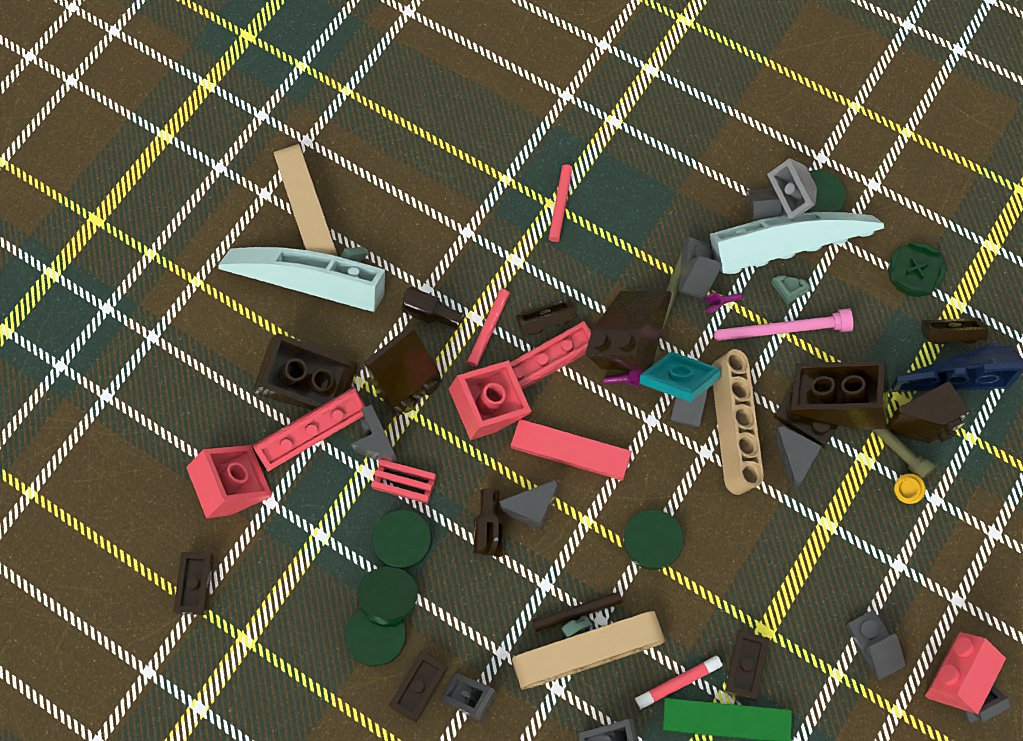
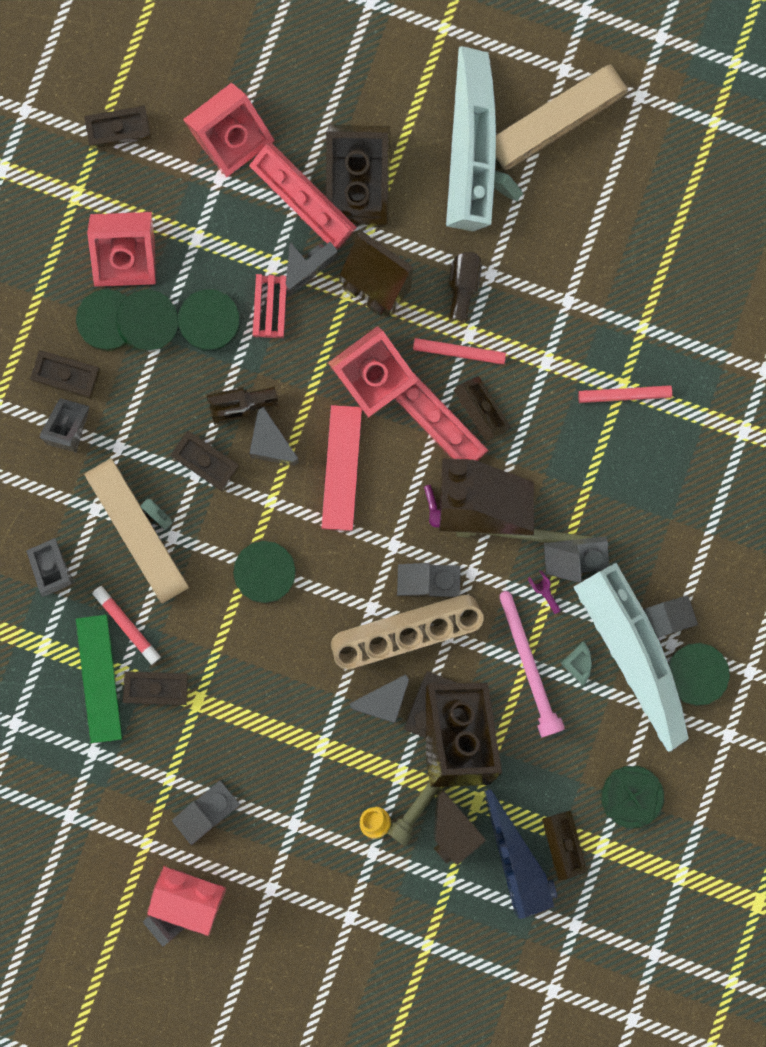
camera: 65 degrees right, 15 degrees up
(312, 603) = (122, 249): none -> coral slope
(535, 571) = (204, 461): none -> dark brown plate
(577, 611) = (174, 512): dark brown bar -> none
(680, 376) = (437, 562): teal tile -> none
(794, 187) = (687, 644): light grey slope -> none

